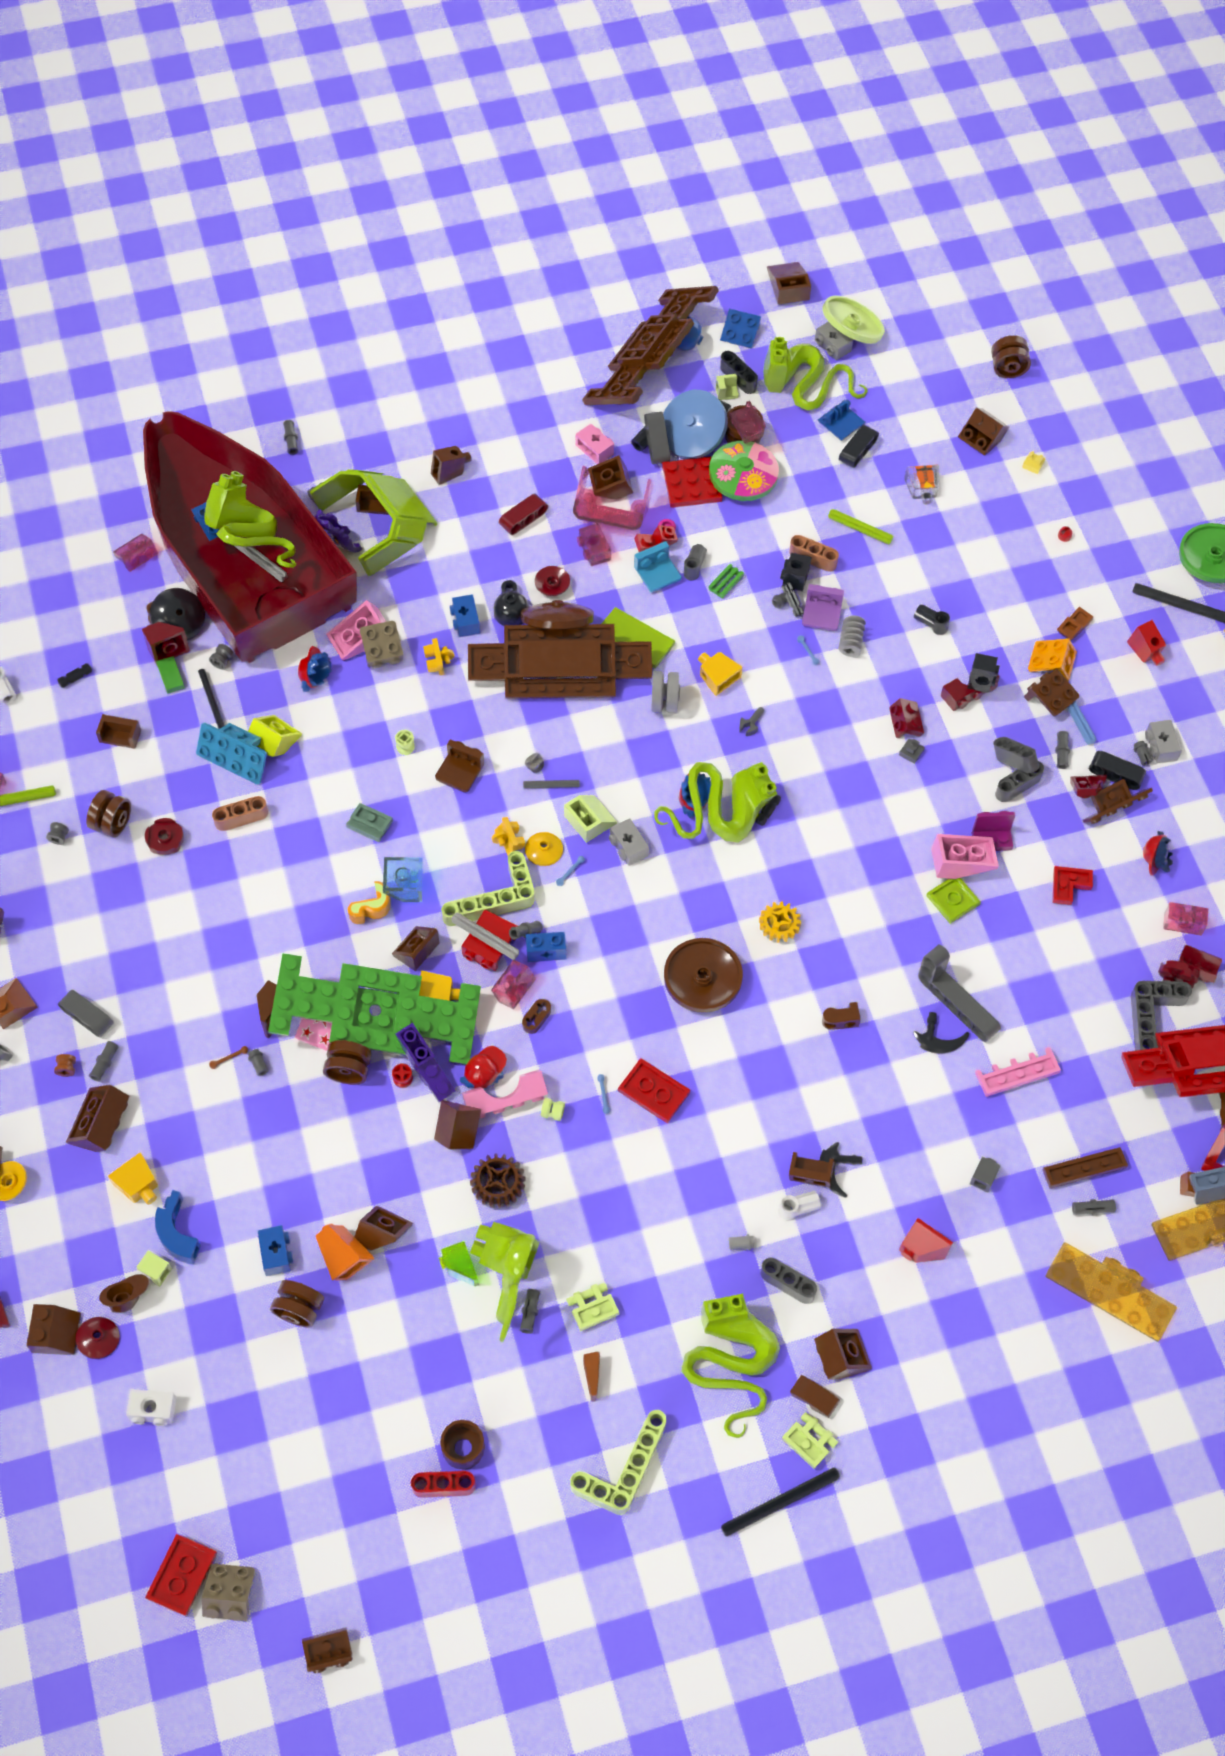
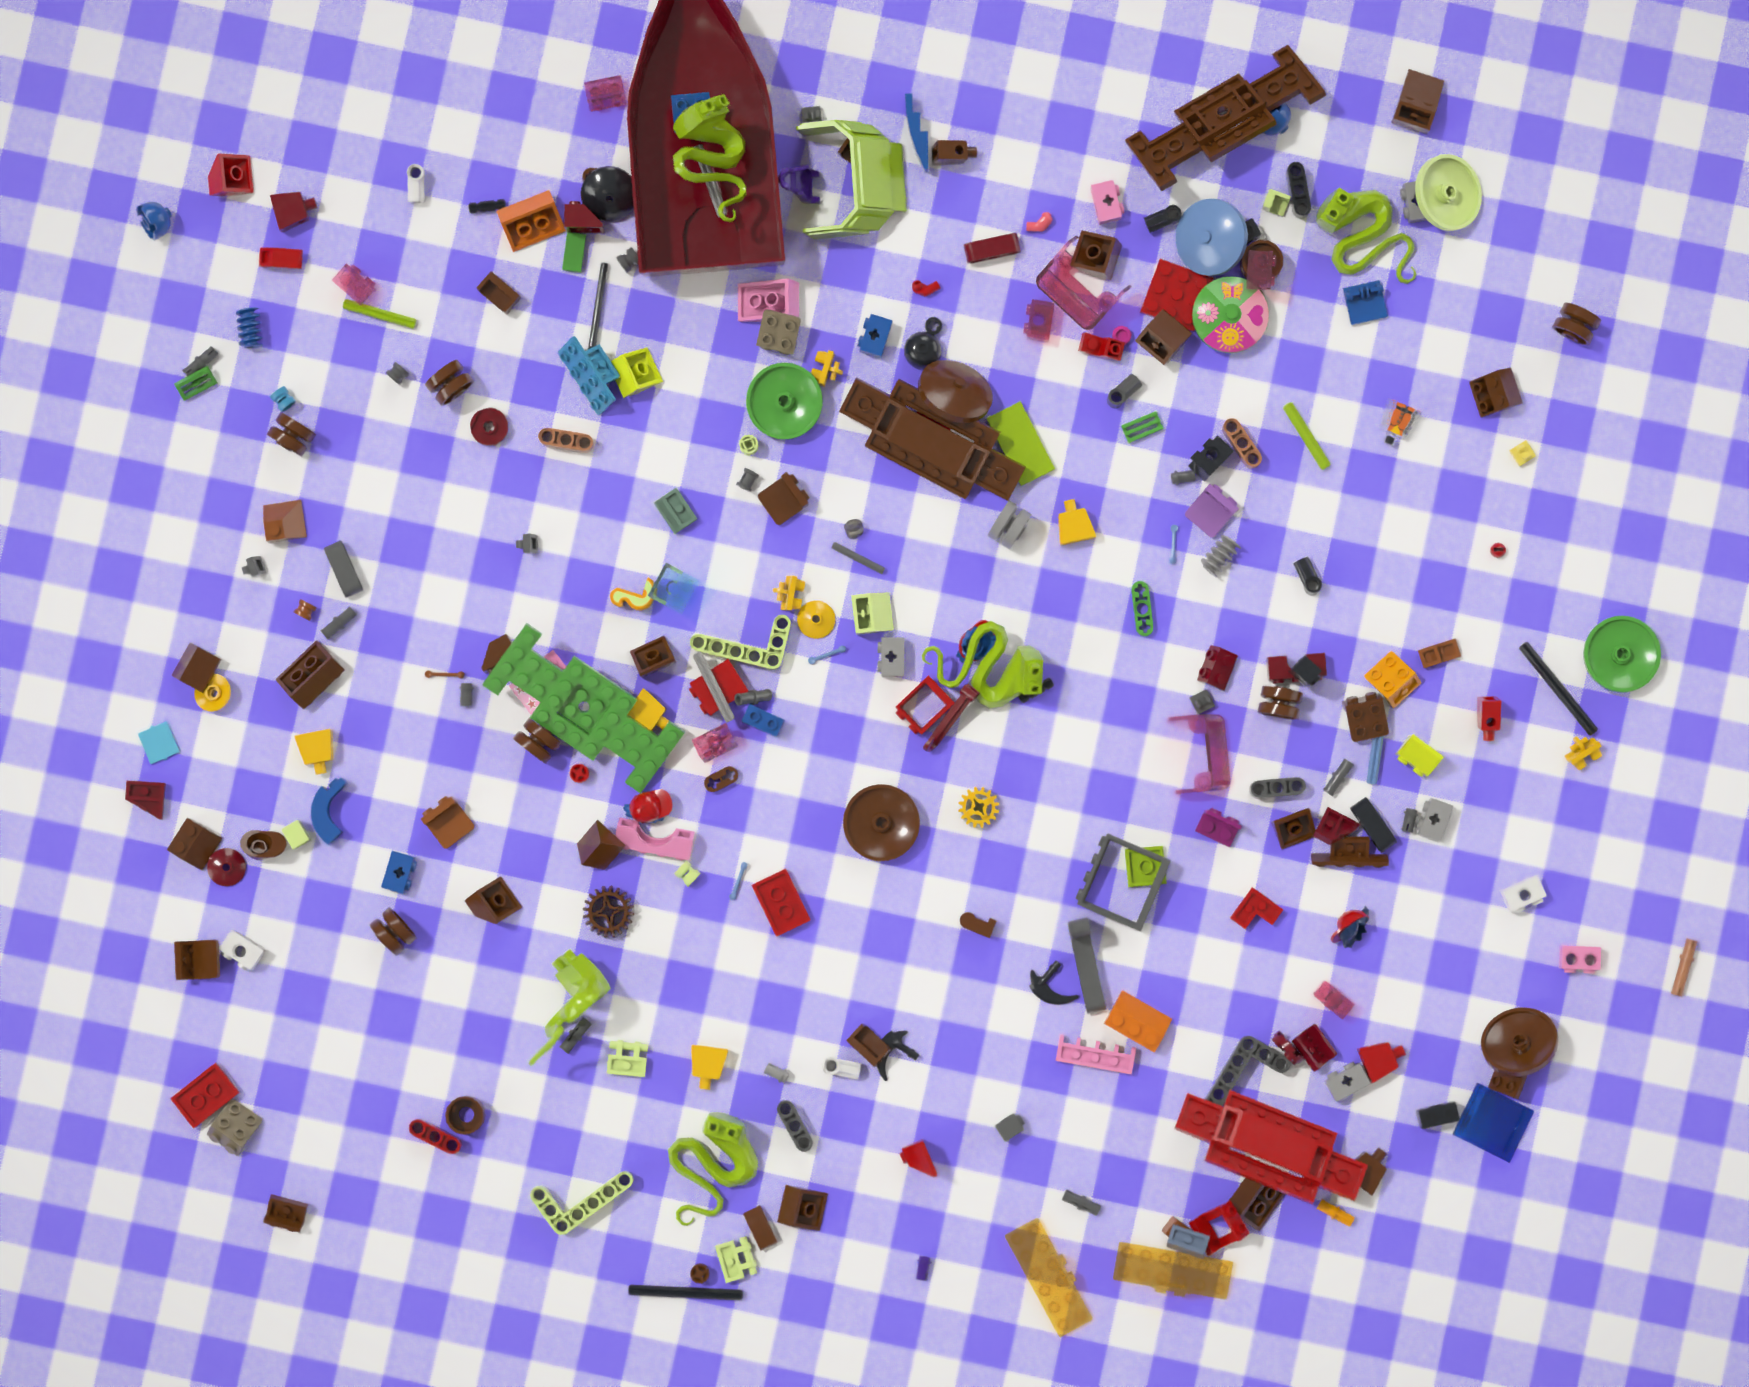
camera: 30 degrees right, 25 degrees up
(108, 1439) = (197, 959): none -> reddish brown bracket
(119, 666) = (531, 220): none -> orange slope
(249, 910) = (528, 544): none -> dark grey tile
(290, 437) = (817, 32): dark grey pin -> none
(297, 1180) = (447, 821): none -> dark orange bracket
(314, 669) = (705, 322): blue hair -> none
(342, 1252) = (451, 904): orange slope -> none
(414, 467) = (918, 138): none -> blue slope
(416, 693) = (784, 401): none -> bright green dish
(419, 769) = (747, 479): none -> dark grey bush
(424, 1062) = (602, 777): dark purple slope -> none
(458, 1263) = (539, 964): clear neon green slope -> none
(481, 568) = (923, 289): none -> red arm
(552, 484) = (1041, 225): none -> coral arm
(552, 575) = (979, 331): dark red dish -> none
(591, 1365) = (599, 1107): dark orange slope -> none
(656, 567) = (1083, 381): dark azure bracket -> none
(657, 437) = (1167, 233): dark grey beam -> none
(671, 1267) = (707, 1063): none -> yellow torso
(685, 849) = (932, 685): none -> red window
(701, 508) = (1163, 337): none -> reddish brown slope
(714, 831) = (968, 695): none -> dark red piece
(740, 328) = (1333, 136): blue hinge -> none
(751, 722) = (1076, 591): dark grey bar -> none
(785, 1469) = (701, 1275): none -> reddish brown wheel
(792, 599) = (1189, 485): axle -> none
(815, 714) = (1149, 622): none -> bright green beam
(858, 446) = (1362, 343): black beam -> none
(944, 882) = (1089, 878): none -> dark grey window
(960, 794) = (1217, 752): none -> clear pink windscreen
(963, 855) = (1176, 836): bright pink slope -> none
(977, 713) = (1280, 701): none -> reddish brown wheel
(991, 1347) = (923, 1268): none -> dark purple pin
(1016, 754) = (1289, 771): dark grey beam -> none
(1035, 1026) = (1138, 1021): none -> orange slope
(1055, 803) = (1294, 828): none -> reddish brown slope
(1085, 1167) = (1096, 1166): reddish brown plate -> none
(1116, 697) = (1418, 755): none -> neon yellow slope

